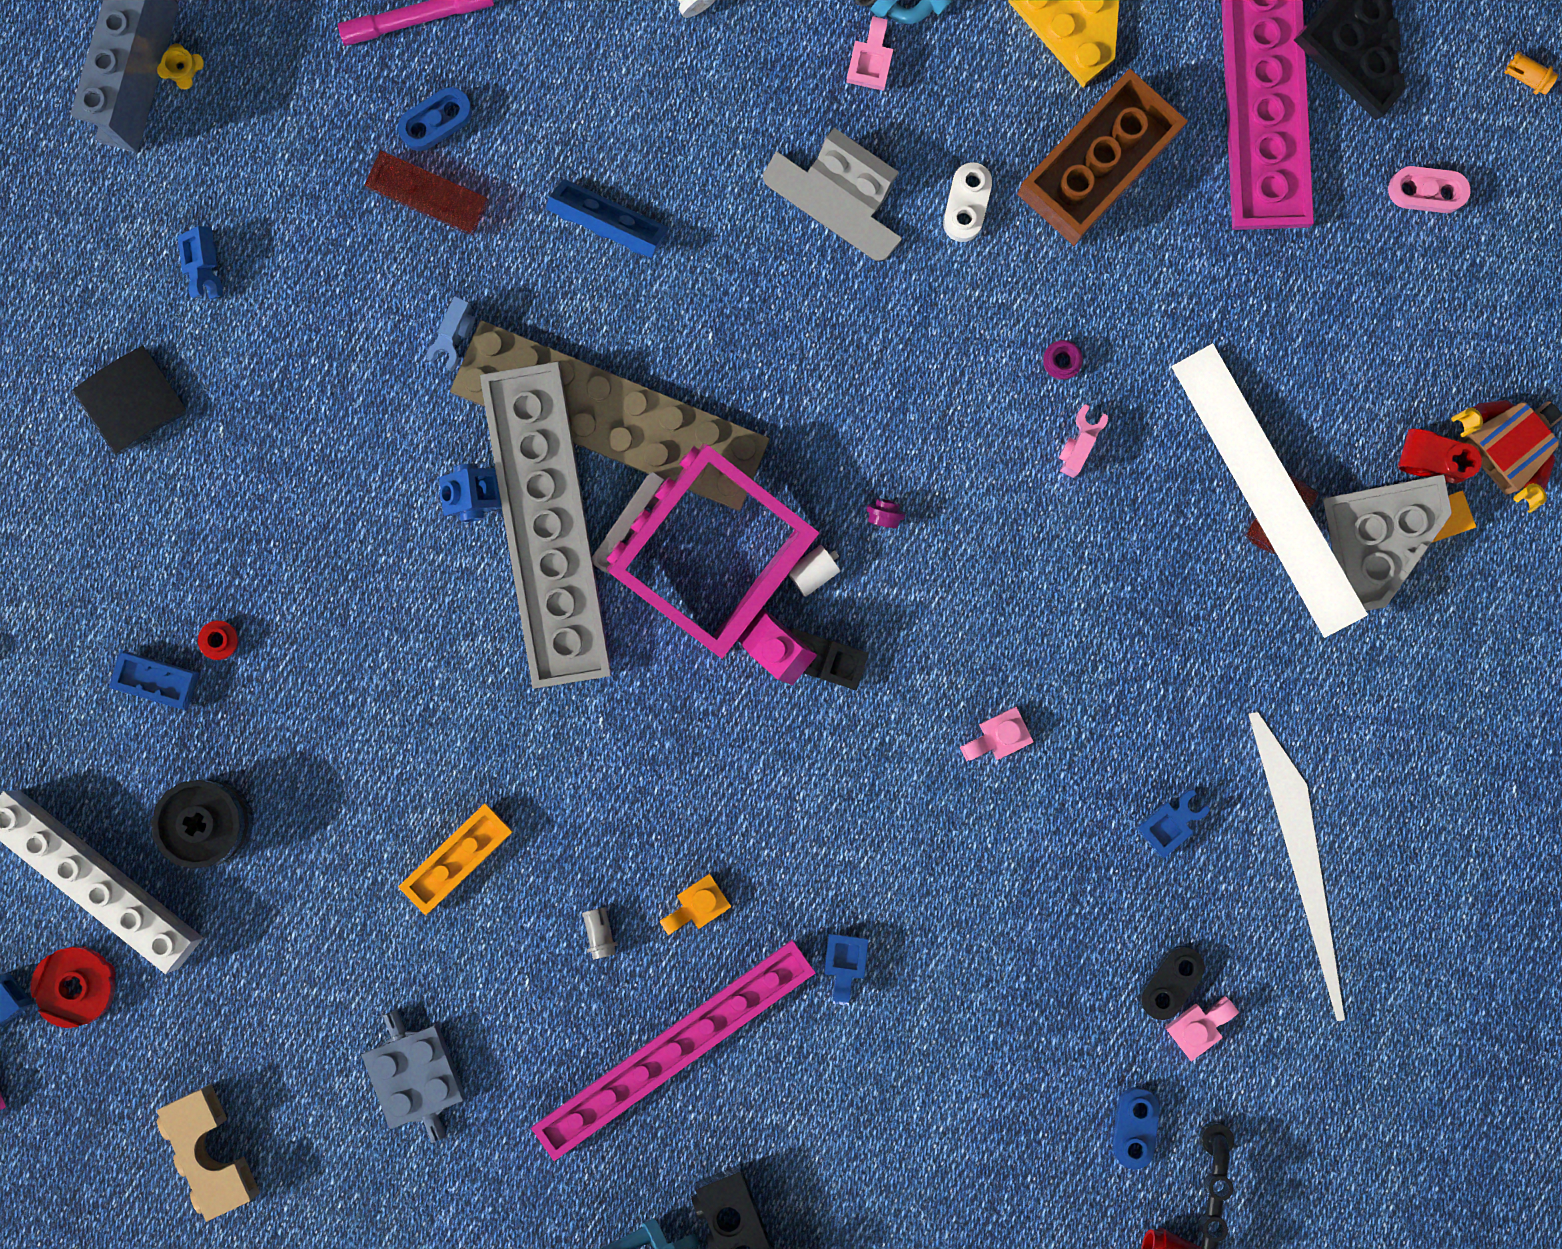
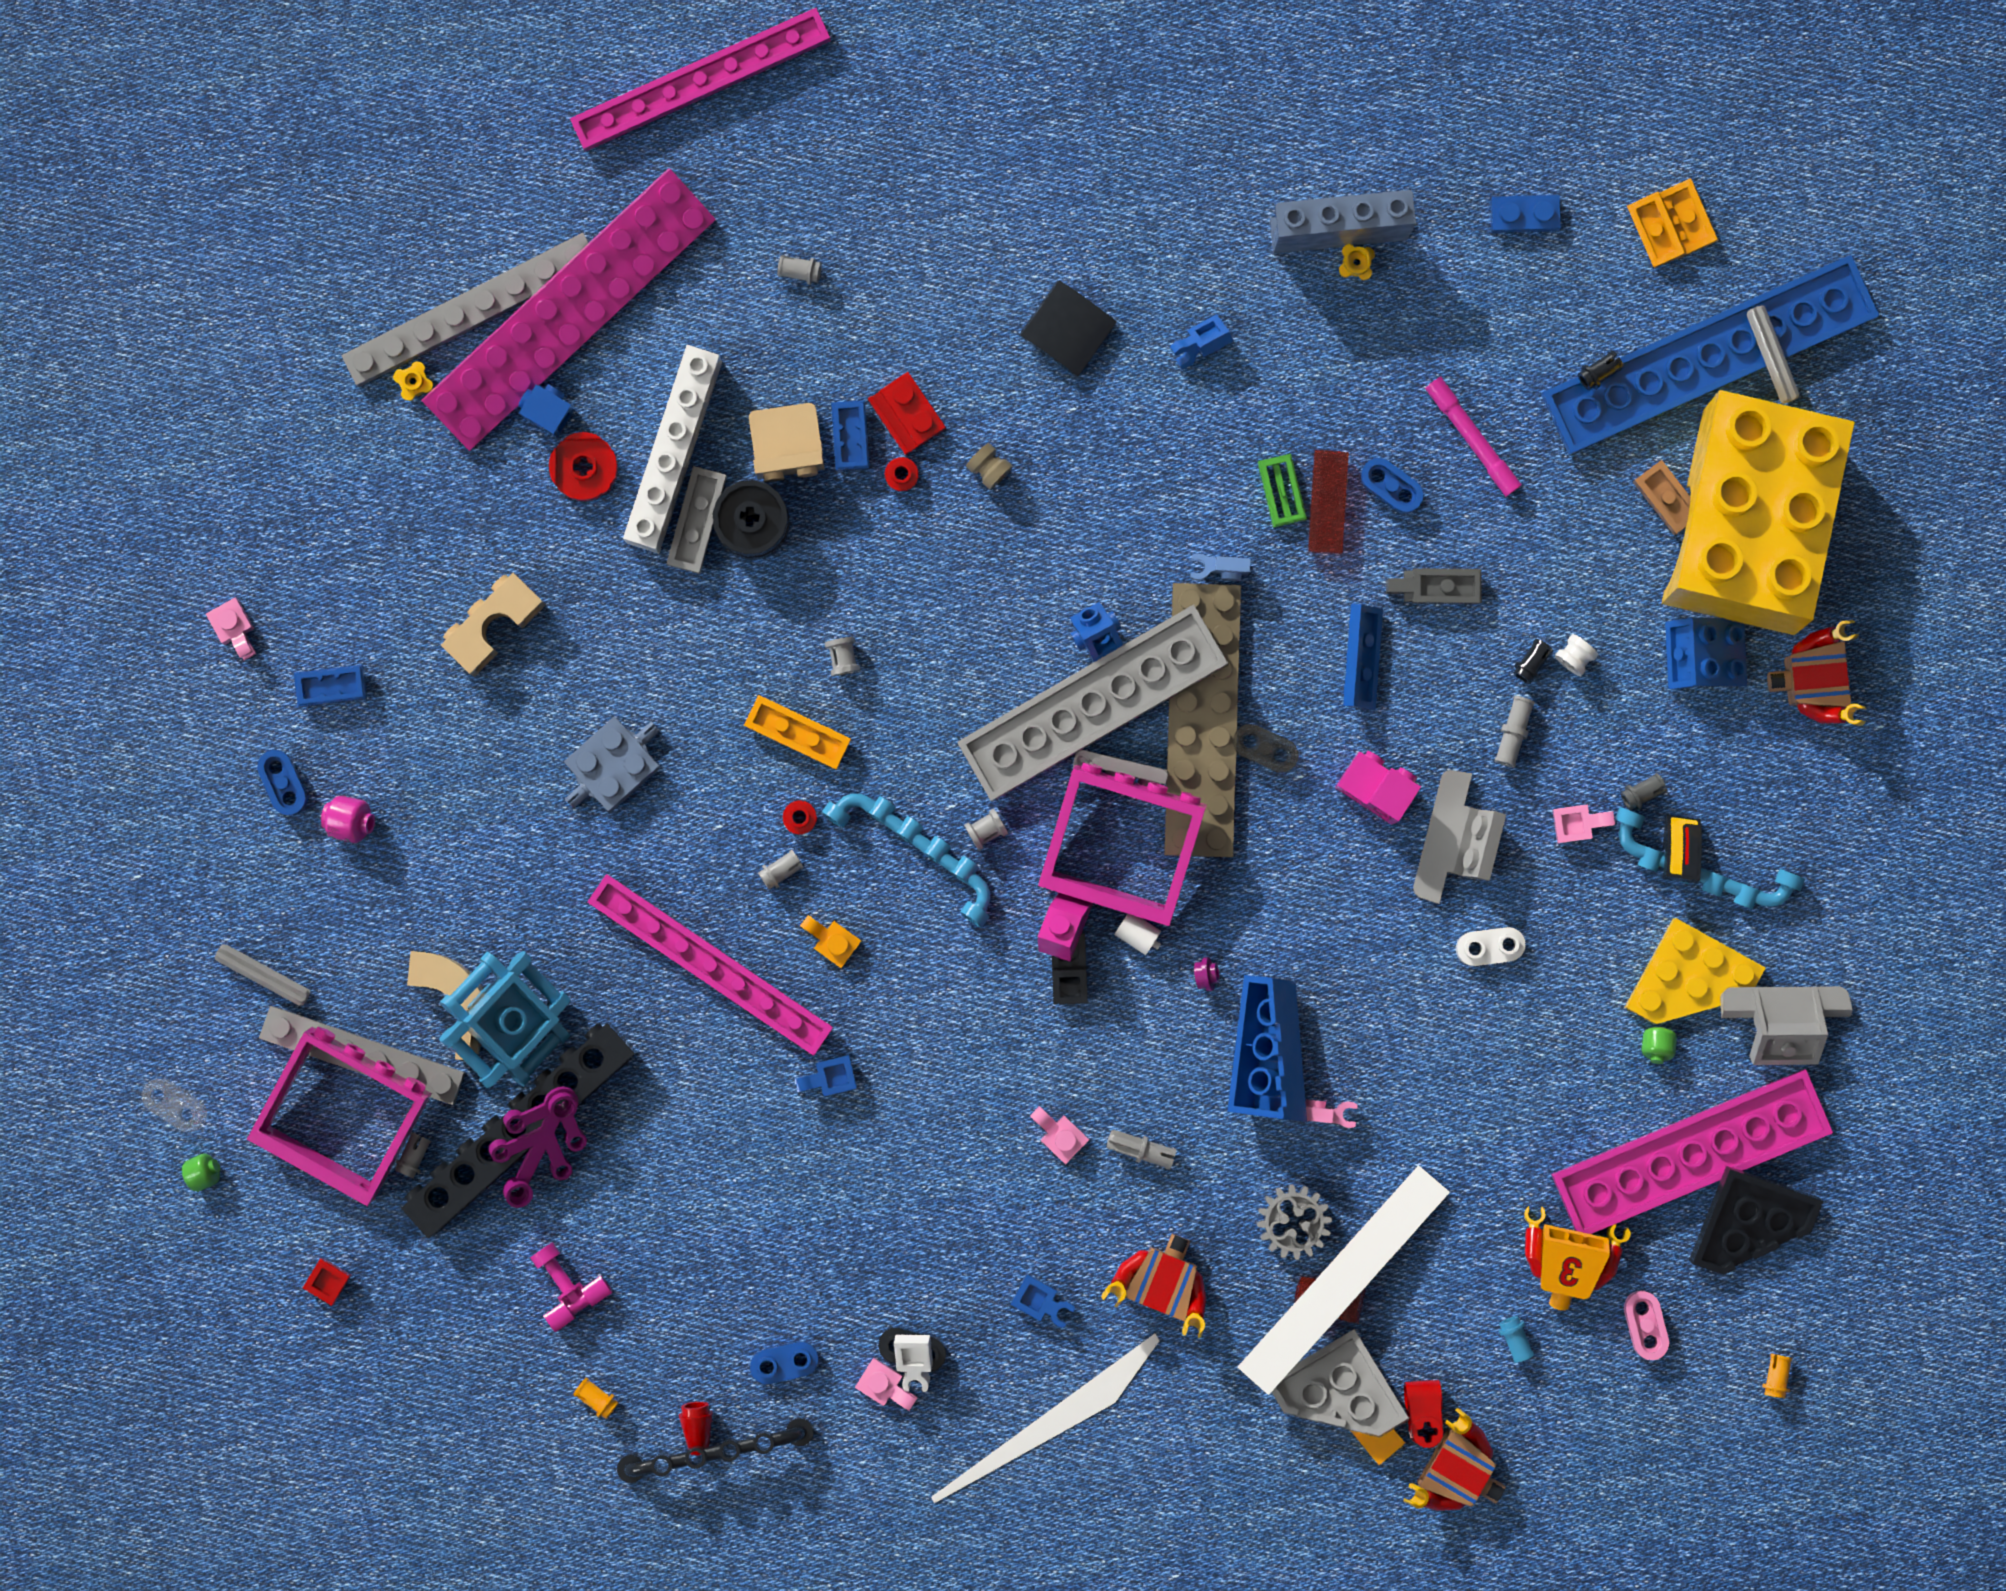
camera: 75 degrees right, 0 degrees up
(133, 753) = (786, 442): none -> tan bracket
(154, 610) = (906, 413): none -> red plate
(181, 886) = (696, 520): none -> light grey plate
(250, 539) = (992, 469): none -> dark tan wheel
(391, 253) = (1288, 519): none -> bright green tile
(391, 778) = (842, 656): none -> light grey bush
(561, 885) = (807, 825): none -> red plate
(562, 111) = (1438, 586): none -> dark grey hinge
(611, 776) = (935, 849): none -> dark azure bar
(639, 692) = (986, 829): none -> light grey bush
(665, 359) = (1266, 745): none -> clear smoke plate
(680, 41) = (1532, 661): none -> black pin
(748, 89) = (1514, 731): none -> light grey pin
(757, 254) = (1377, 788): none -> dark pink brick
(996, 478) = (1268, 1052): none -> blue wedge
(1046, 654) = (1141, 1149): none -> light grey axle
(1068, 349) = (1396, 1081): magenta plate -> none
(1101, 157) = (1566, 1043): dark orange brick -> none
(1140, 60) = (1659, 1044): none -> bright green piece
(1185, 985) = (914, 1358): none -> white plate
(1201, 684) = (1163, 1283): none -> torso
(1202, 534) = (1300, 1203): none -> light grey gear
(1334, 241) = (1571, 1260): none -> light orange torso
(1394, 331) = (1516, 1338): none -> dark azure pin

